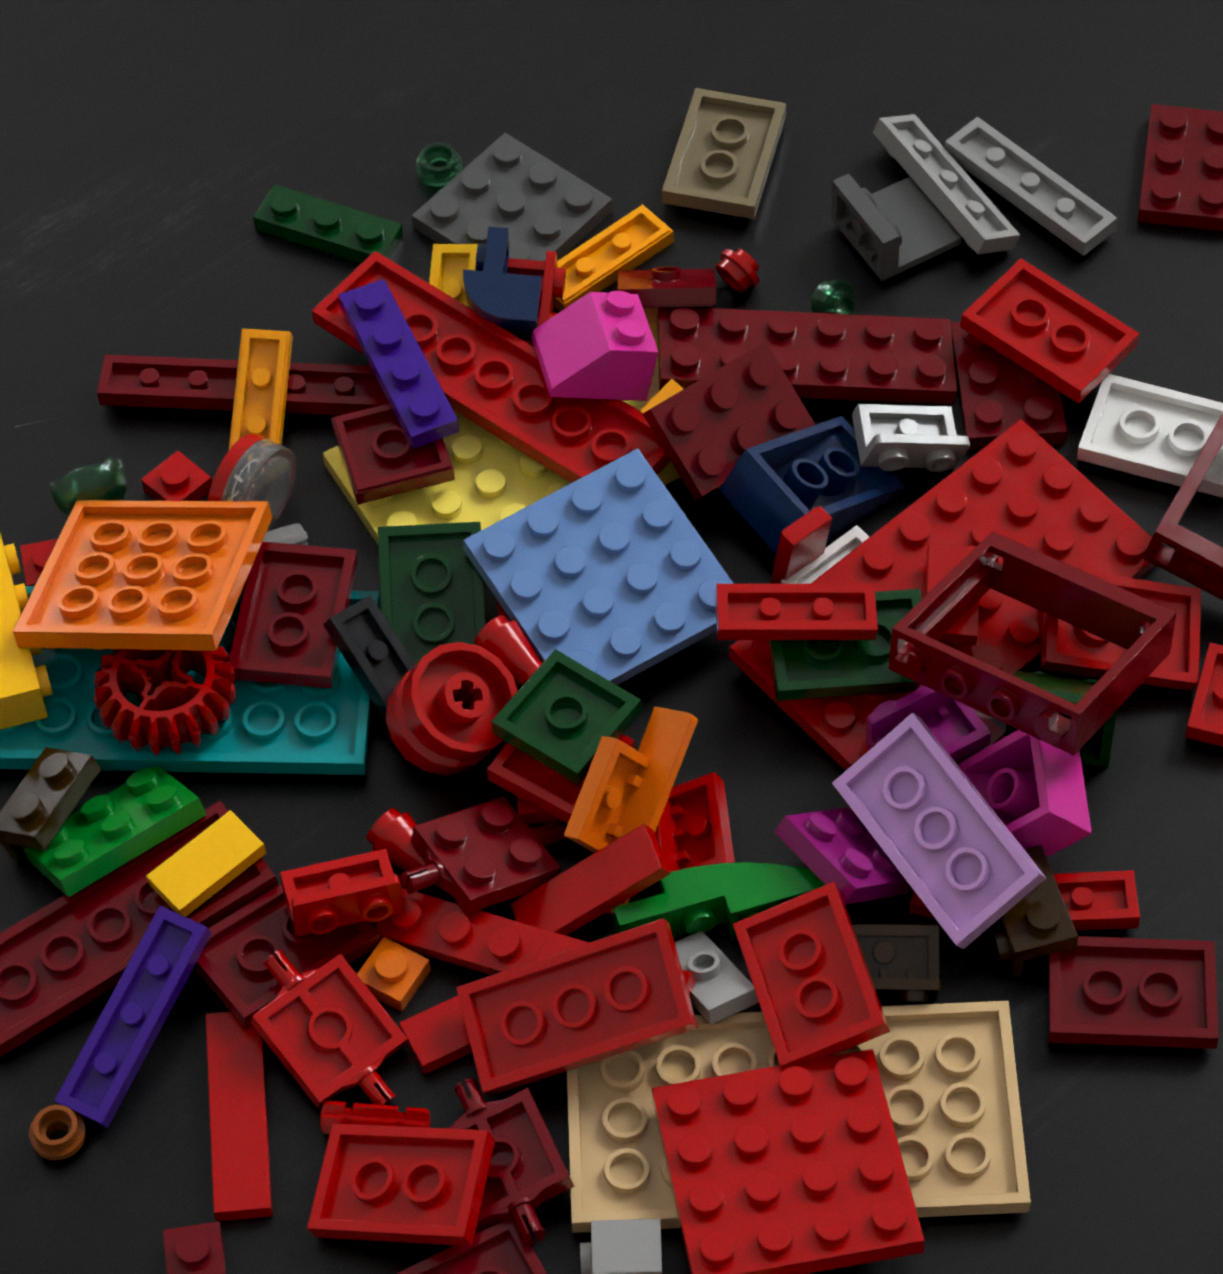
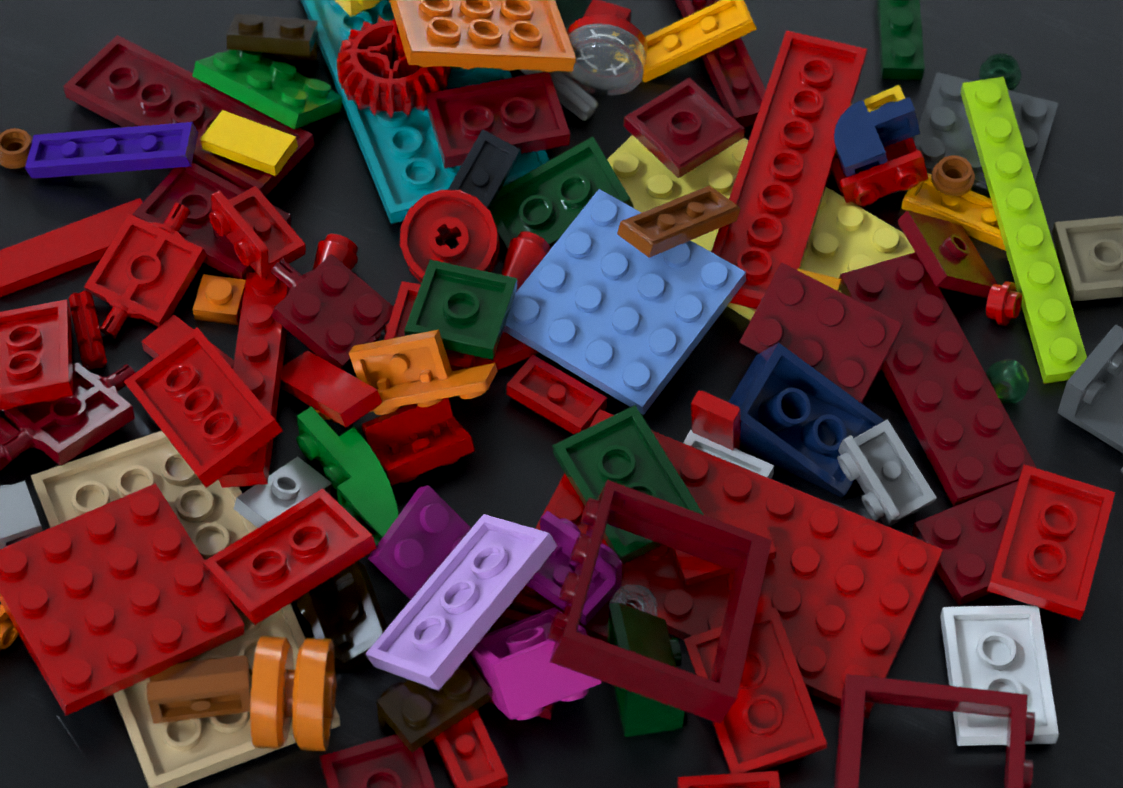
camera: 65 degrees right, 0 degrees up
(398, 363) = (757, 97): dark purple plate -> none
(550, 480) = (678, 221): none -> dark orange tile
(571, 246) = (953, 176): none -> dark orange plate
(598, 349) = (837, 218): dark pink slope -> none
(654, 215) = (1024, 229): none -> lime plate
(685, 682) = (555, 395): none -> red plate
(796, 612) = (623, 425): red plate -> none
(933, 1113) = (200, 690): none -> dark orange panel
(1001, 1010) = (296, 693): none -> orange wheel

